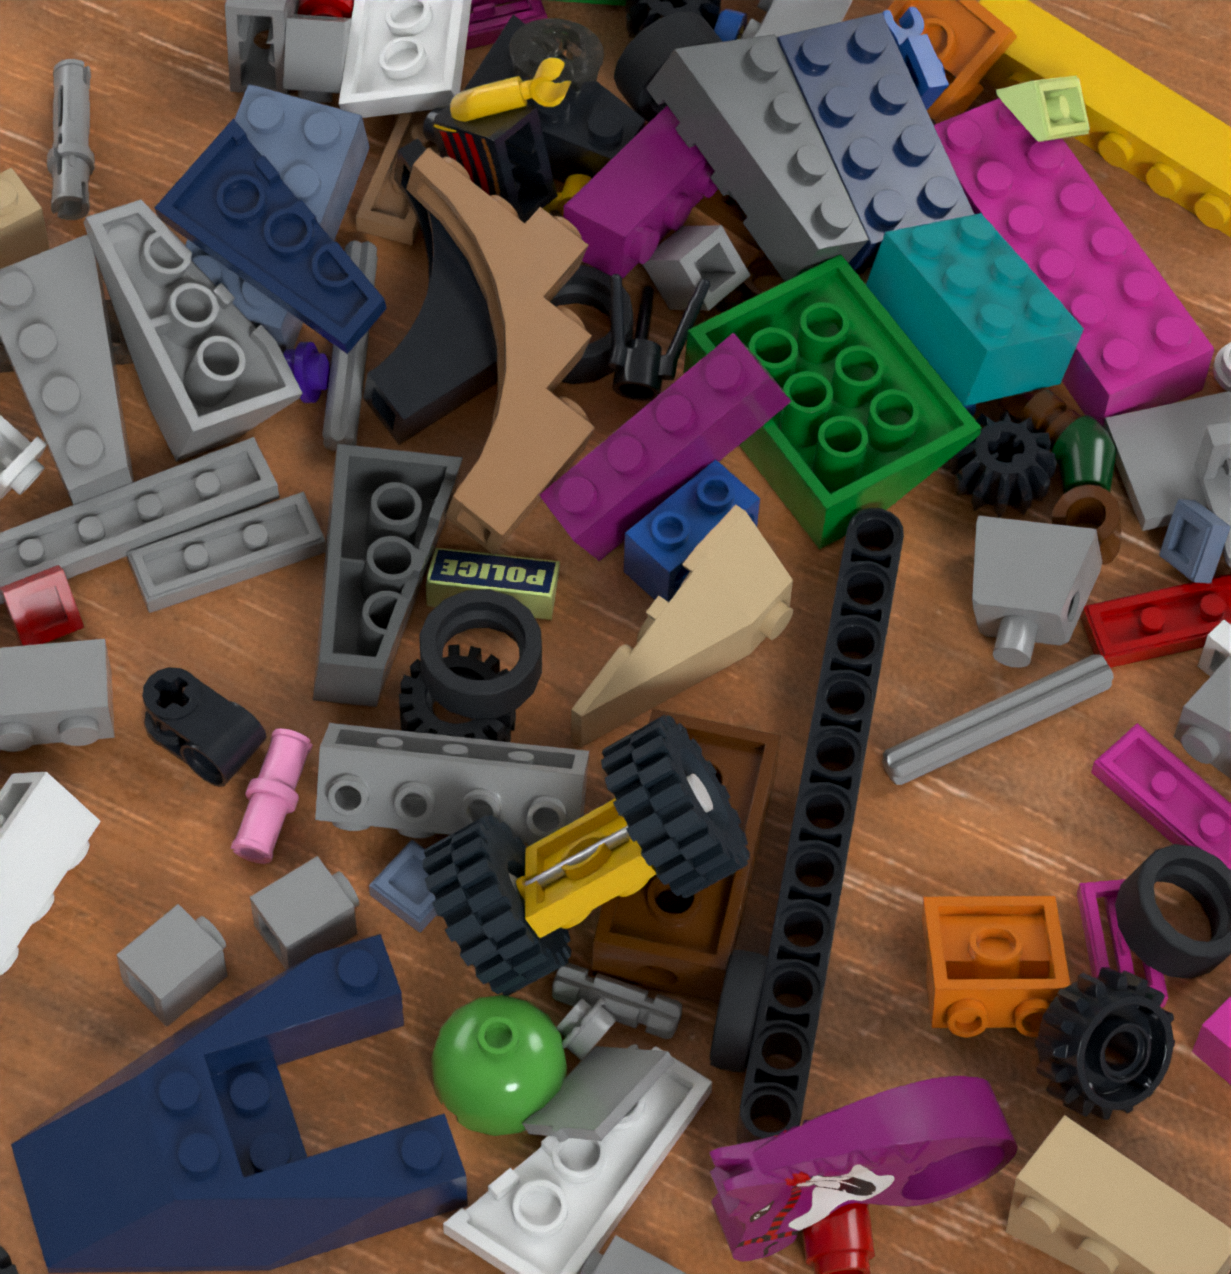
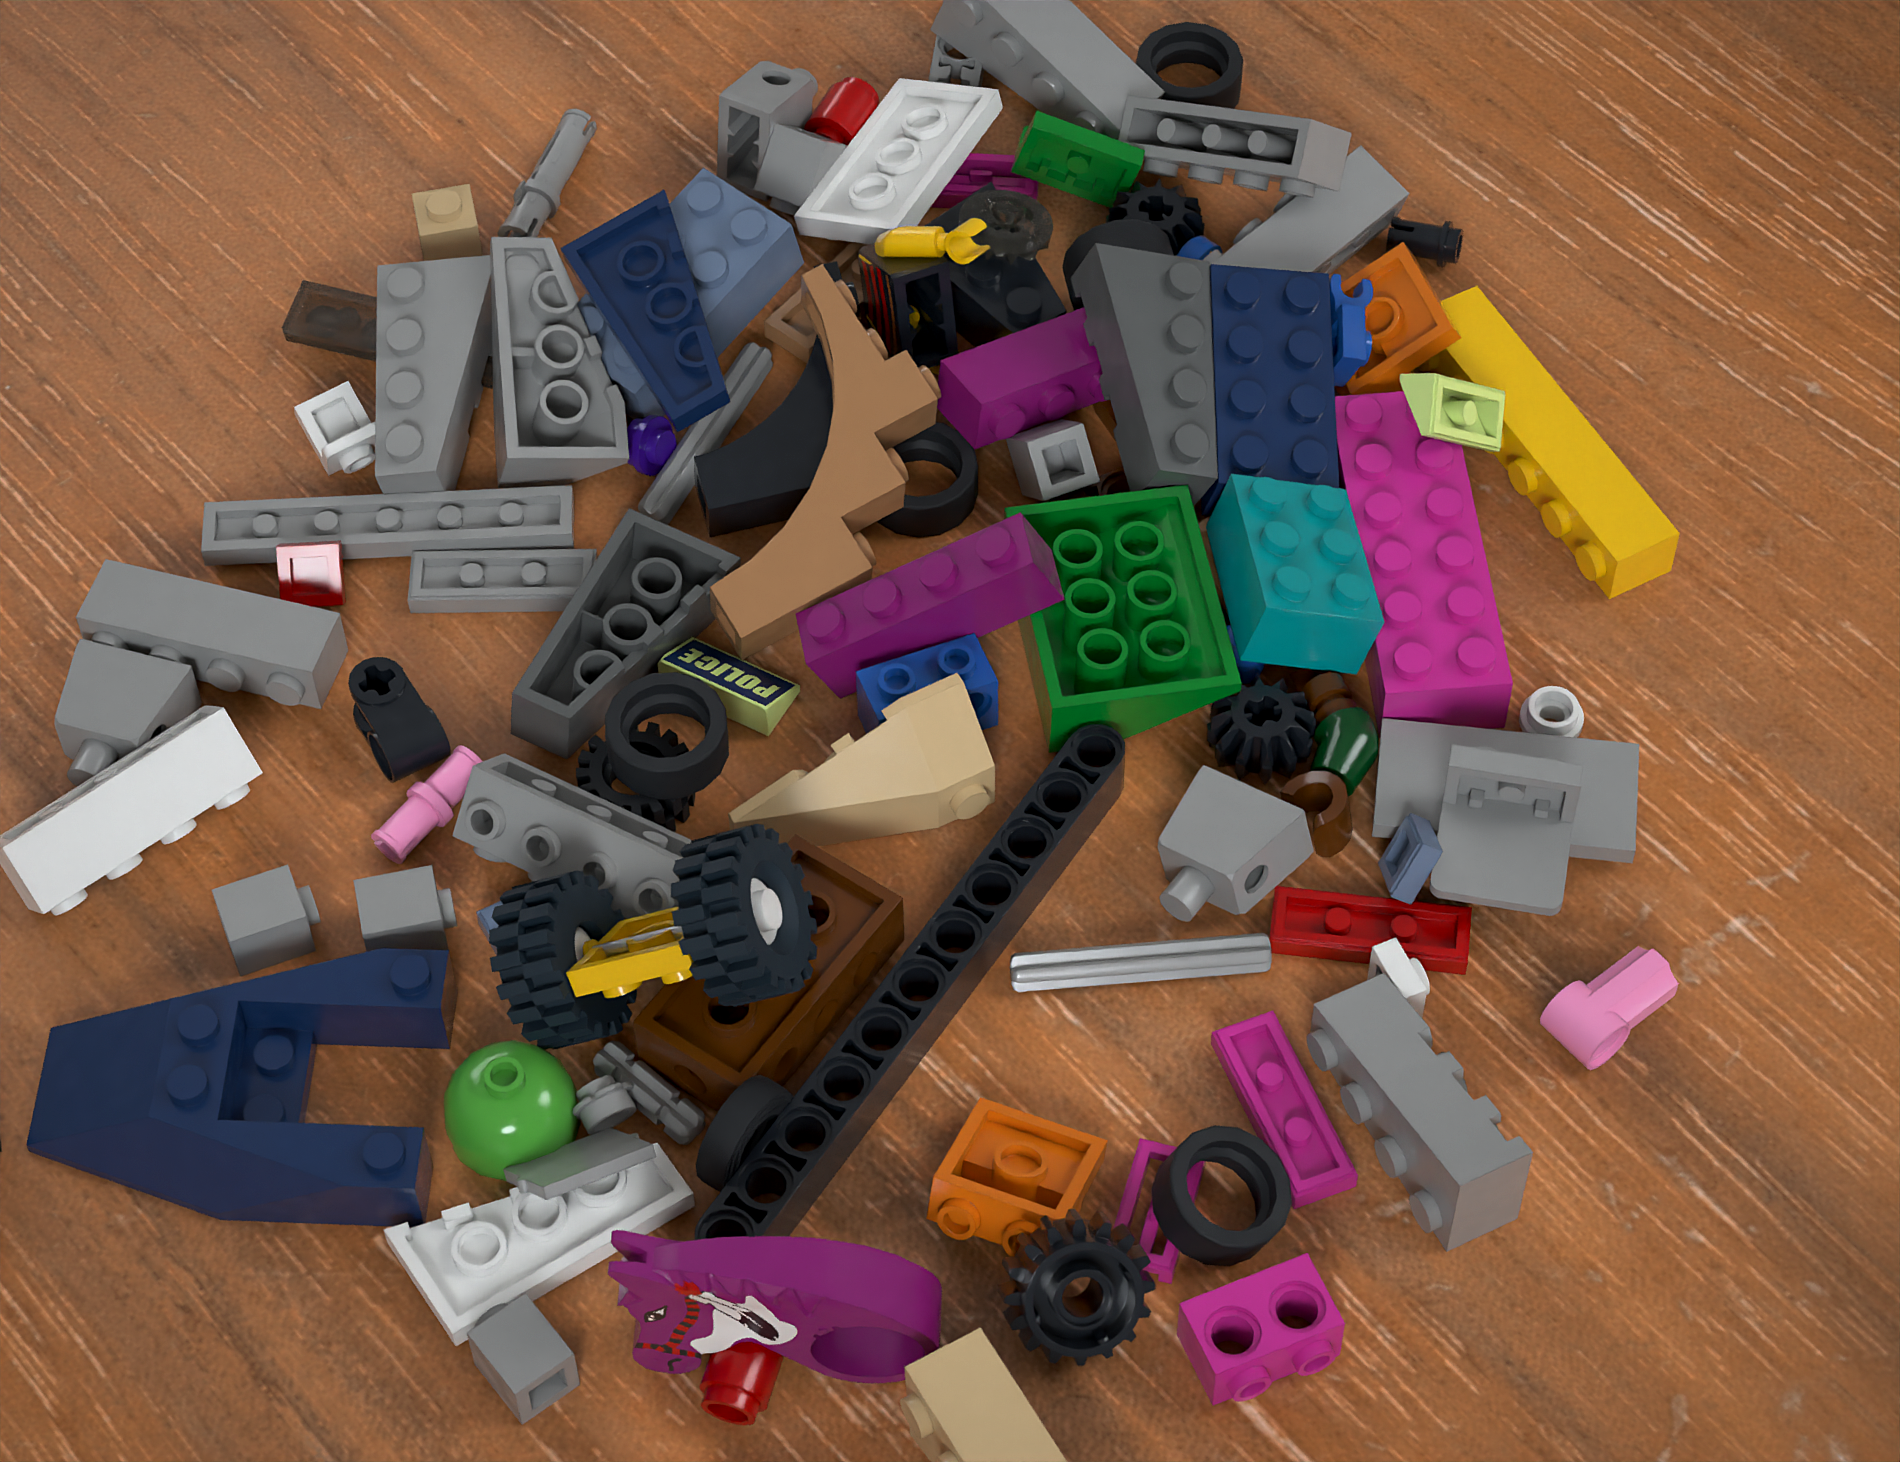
camera: 25 degrees right, 5 degrees down
(640, 364) = (960, 521): black plant -> none

